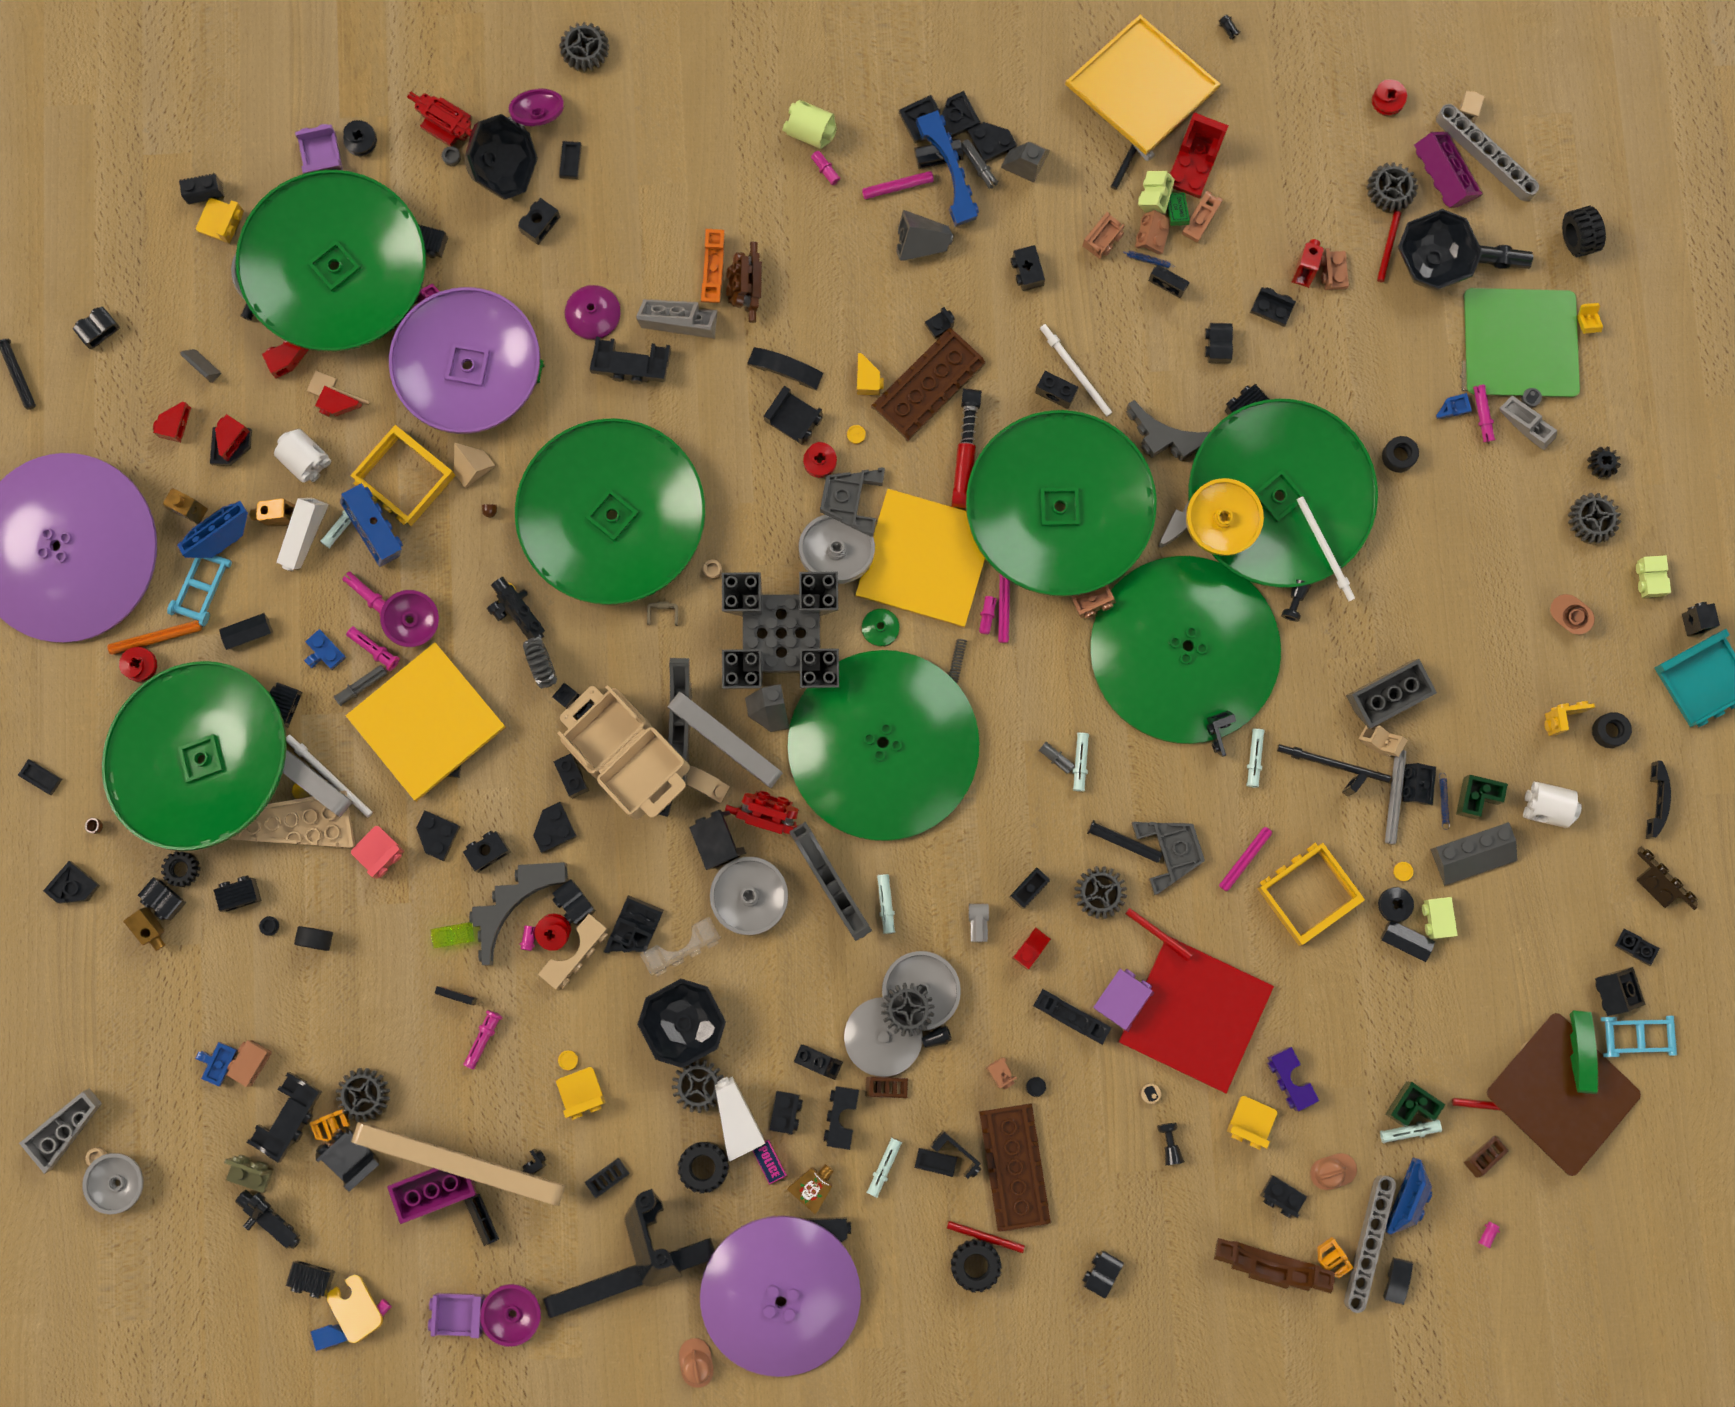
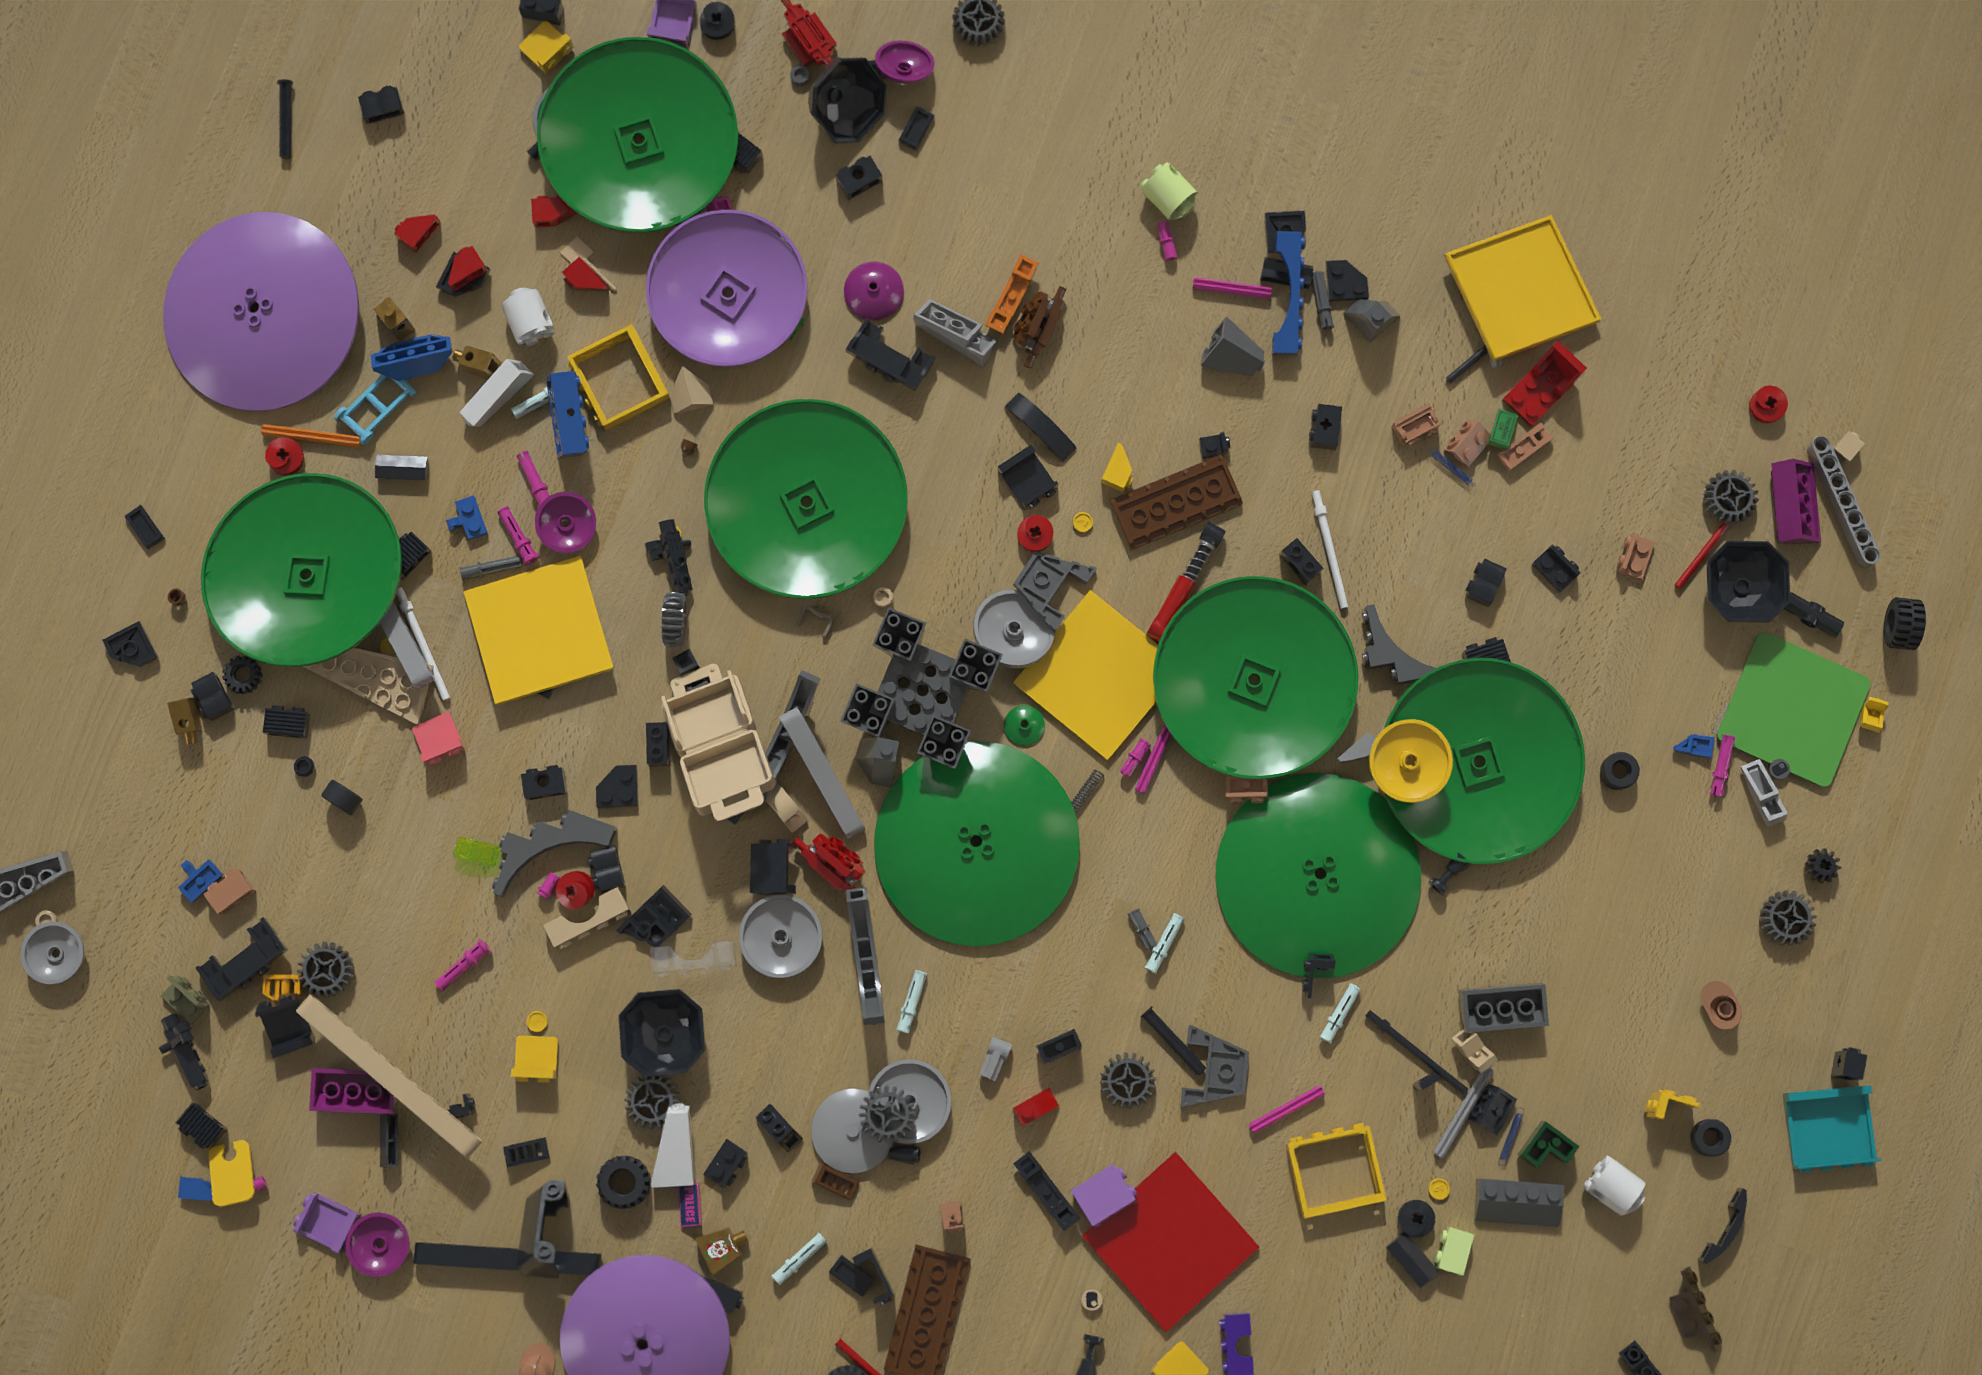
camera: 20 degrees right, 0 degrees up
(201, 364) = (468, 184): dark grey slope -> none
(436, 835) = (502, 746): black plate -> none
(455, 995) = (455, 912): black tile -> none
(837, 1135) = (766, 1207): black arch -> none
(959, 114) = (1323, 242): black plate -> none
(1036, 1086) = (981, 1244): black plate -> none
(1157, 191) = (1489, 404): yellowish green brick -> none
(1159, 934) = (1168, 1146): red bar -> none
(1168, 281) = (1462, 498): black bracket -> none
(1229, 27) = (1636, 264): black pin -> none
(1310, 259) = (1610, 539): red torso -> none
(1342, 581) = (1502, 876): white bar -> none
(1653, 576) = (1821, 1002): yellowish green brick -> none

